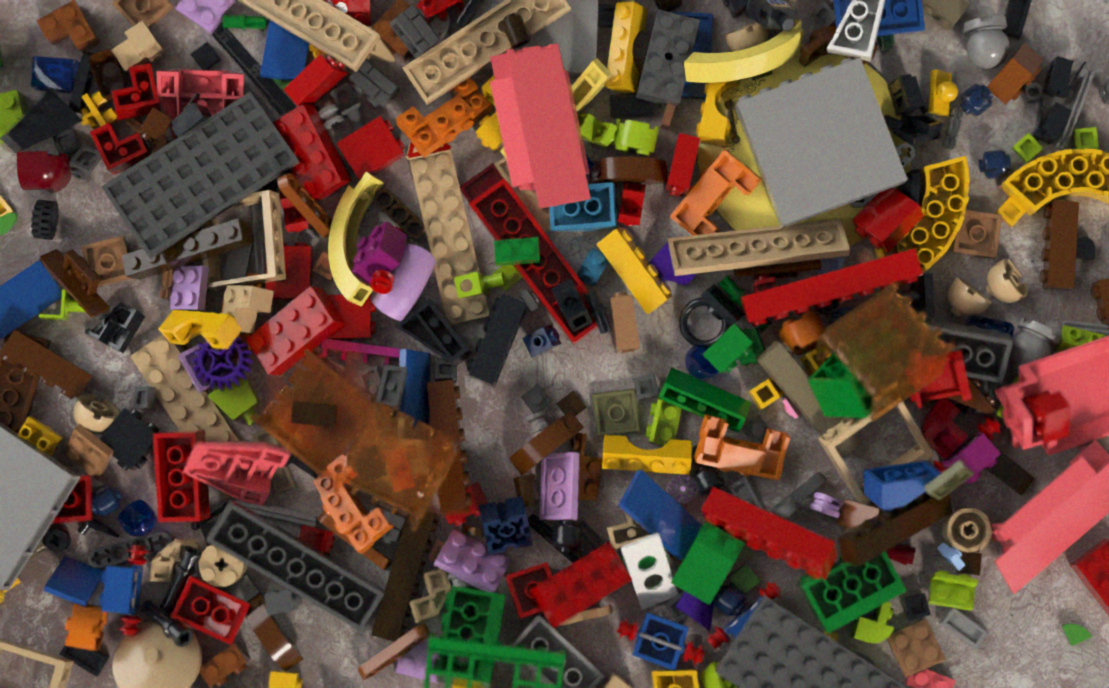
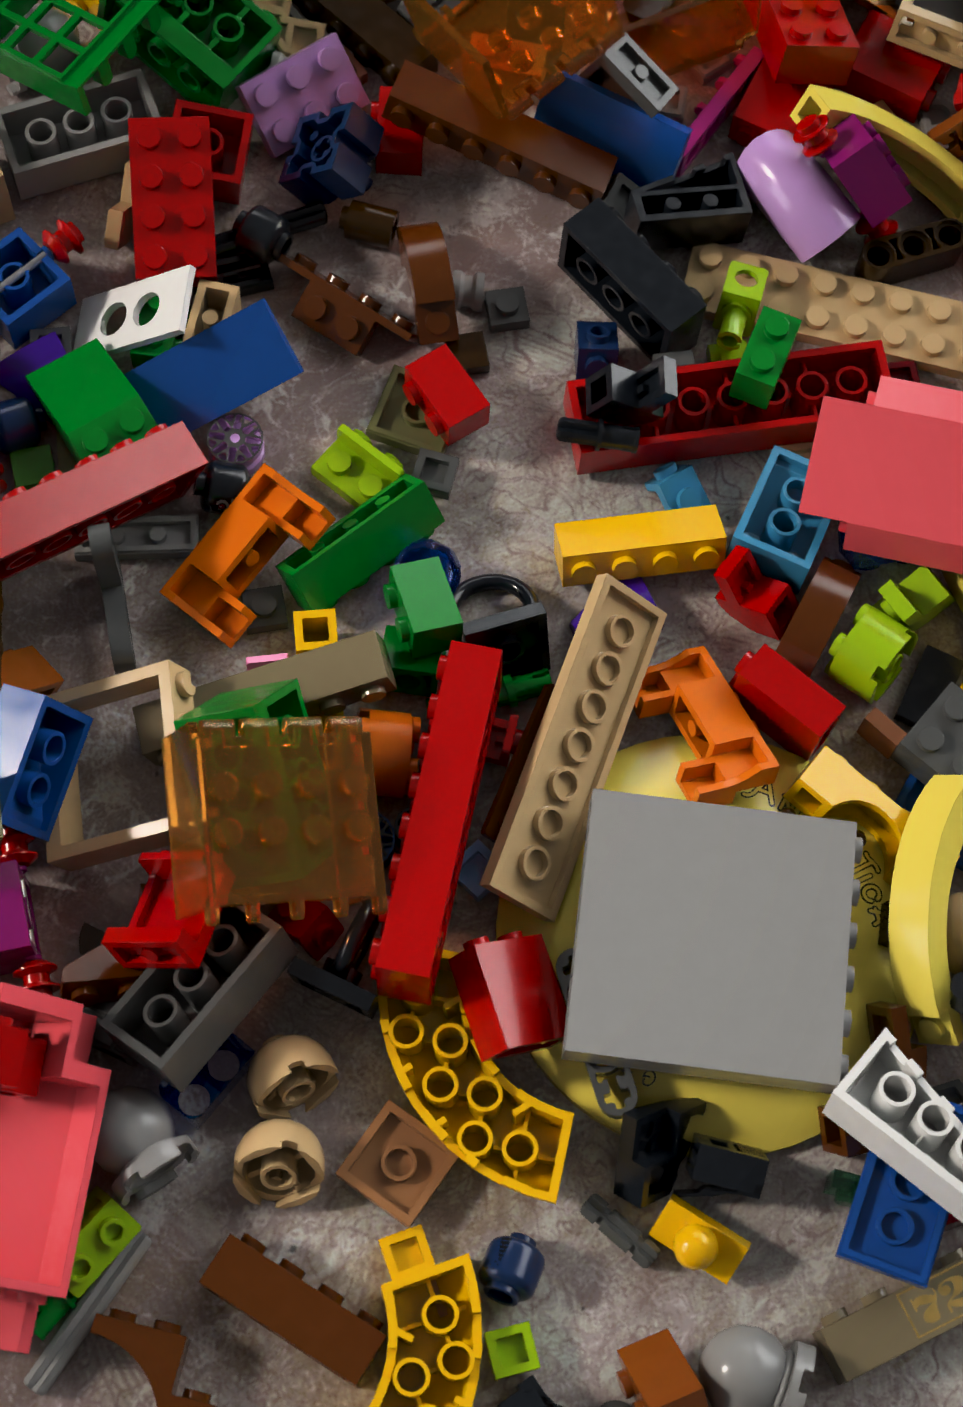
camera: 110 degrees right, 15 degrees down
(559, 487) = (345, 261): lavender plate -> none
(606, 400) = (446, 395): none -> red brick
(622, 455) = (295, 444): yellow arch -> none
(624, 323) = (557, 478): medium nougat brick -> none
(826, 505) = (72, 645): lavender wheel -> none
(912, 185) = (545, 1078): black piece -> none
(940, 430) = (81, 891): dark red brick -> none
(976, 100) = (652, 1298): dark blue head -> none
(1085, 248) = (263, 1356): black tile -> none

